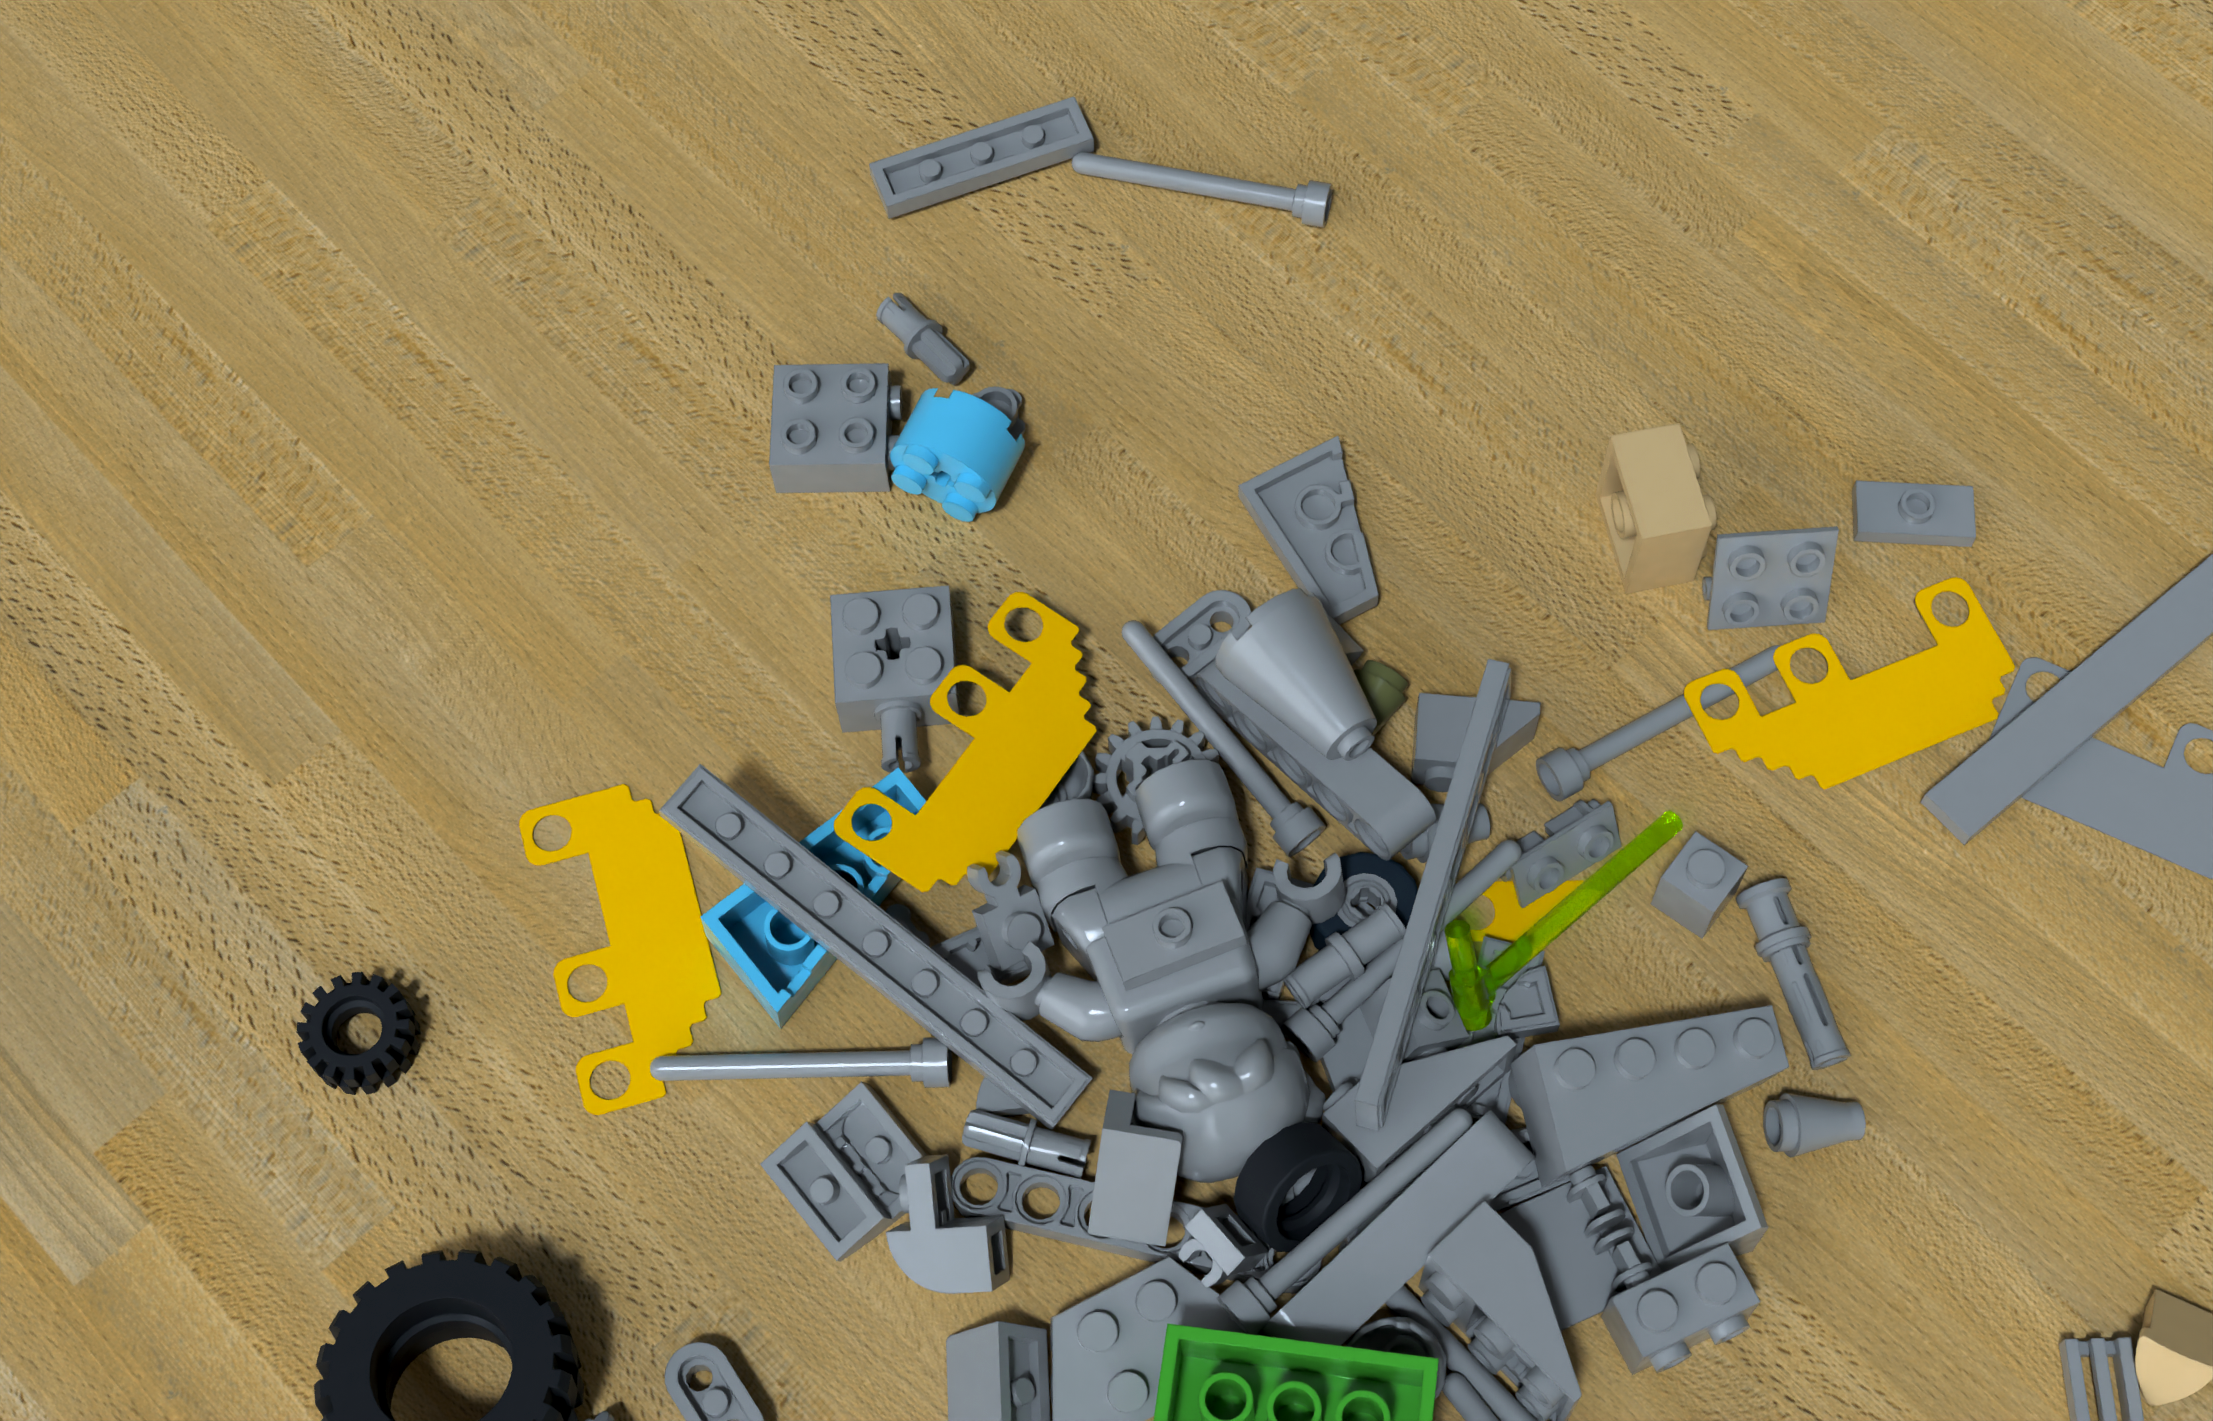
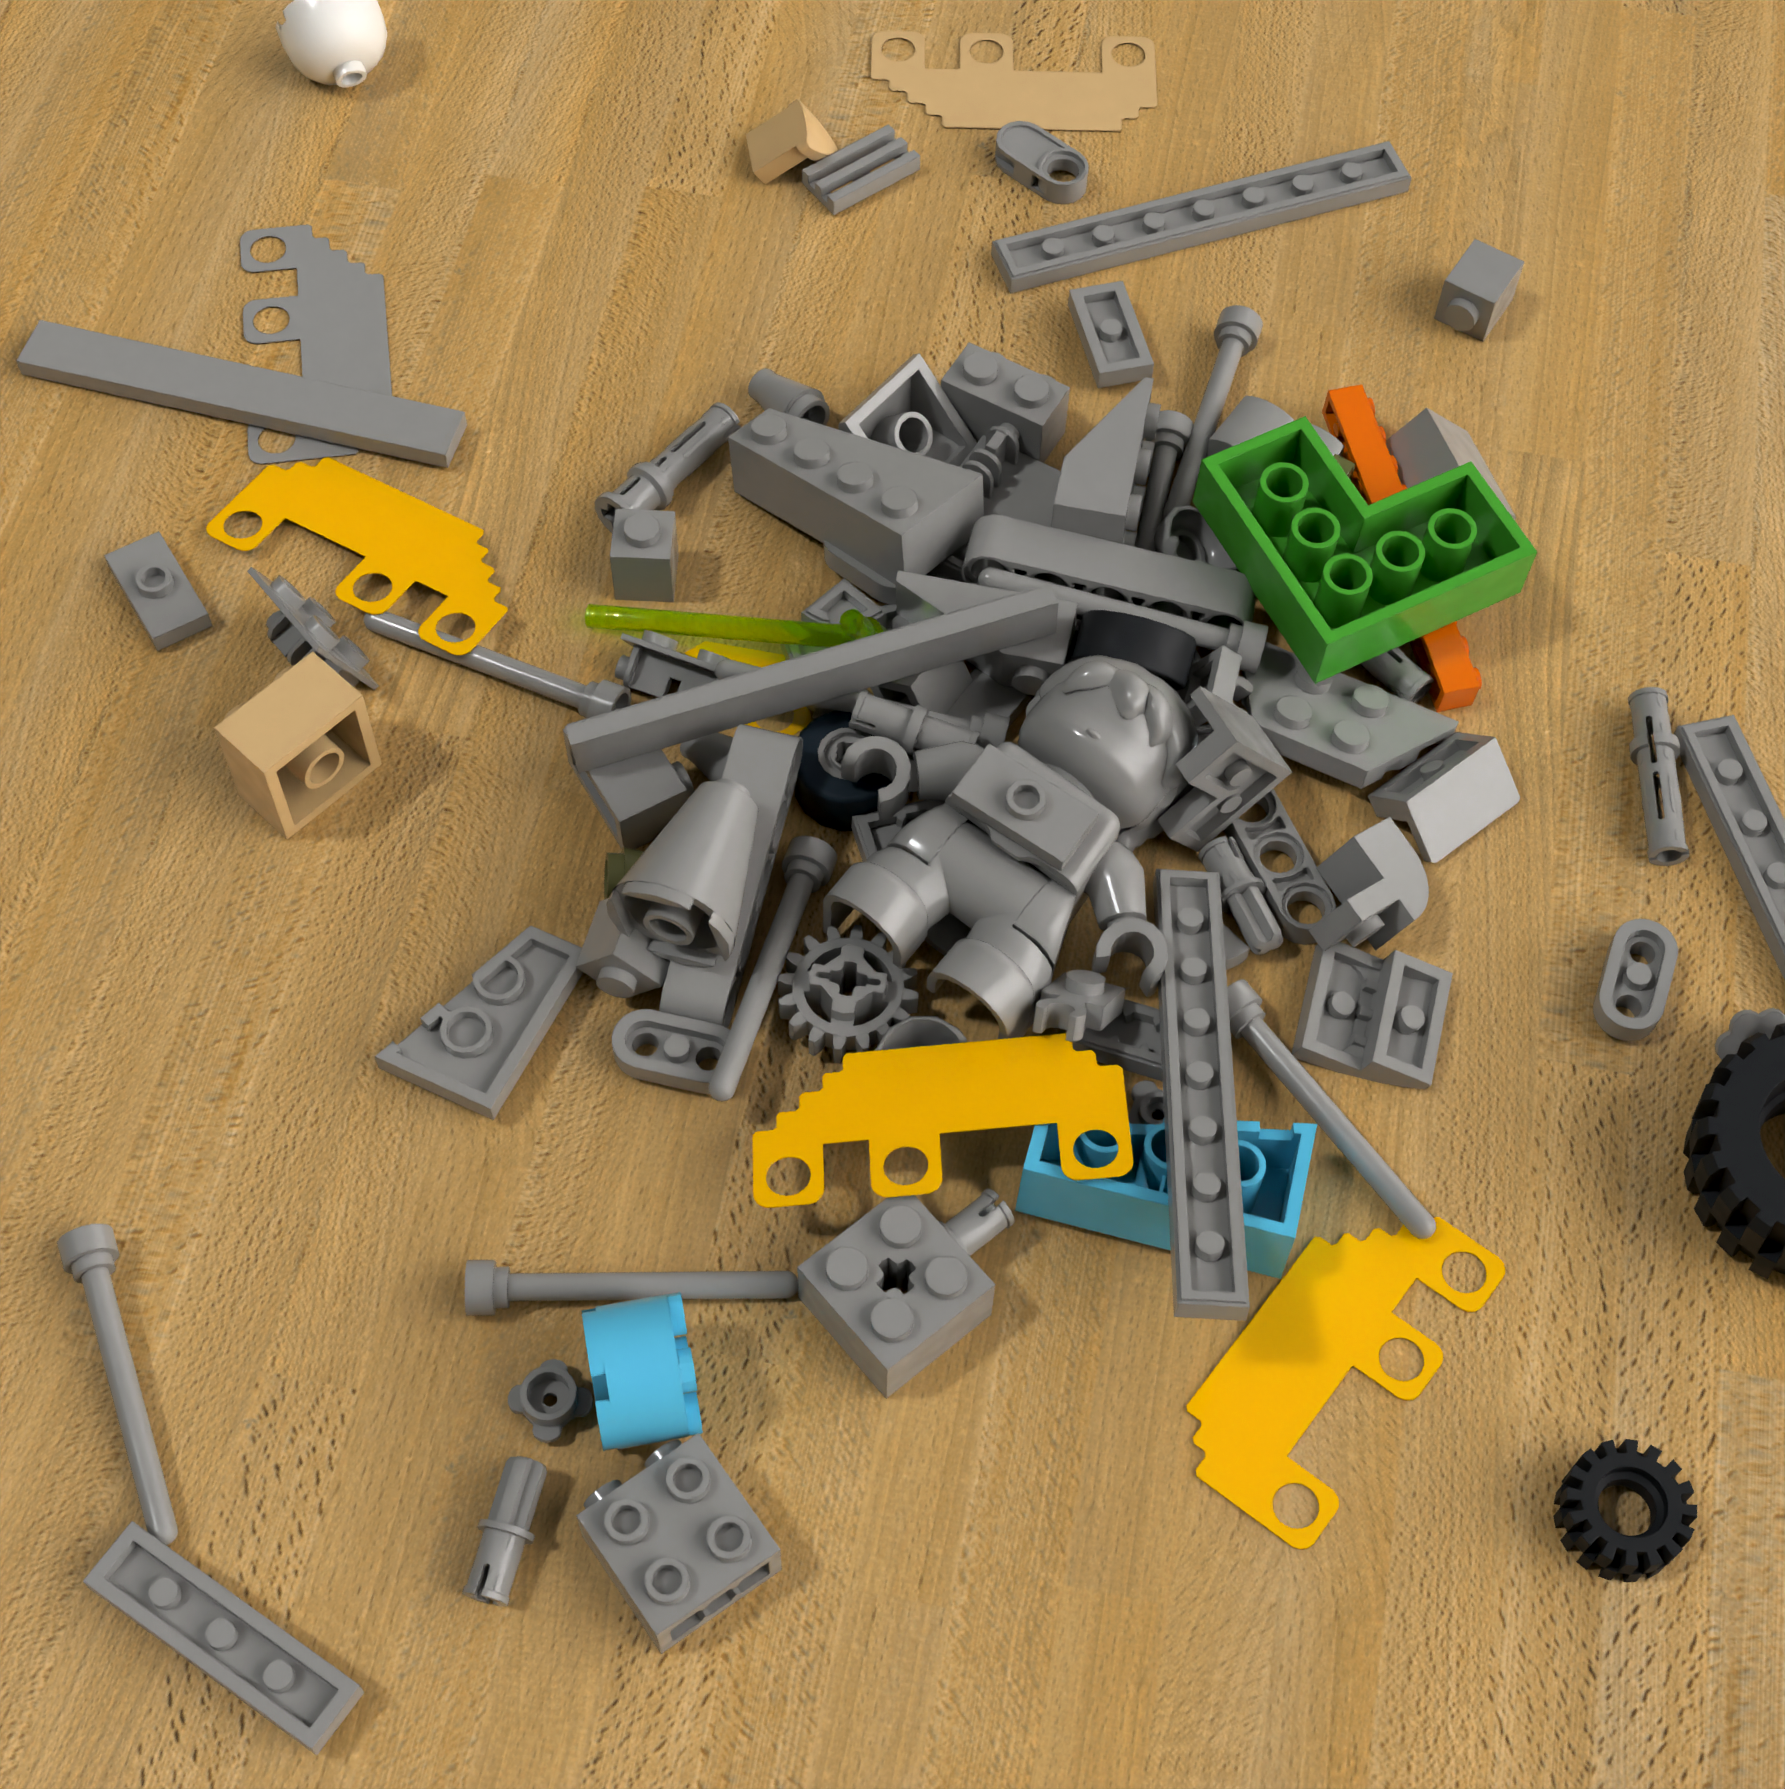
camera: 130 degrees left, 5 degrees down
(1103, 419) = (494, 1286): none -> light grey piece

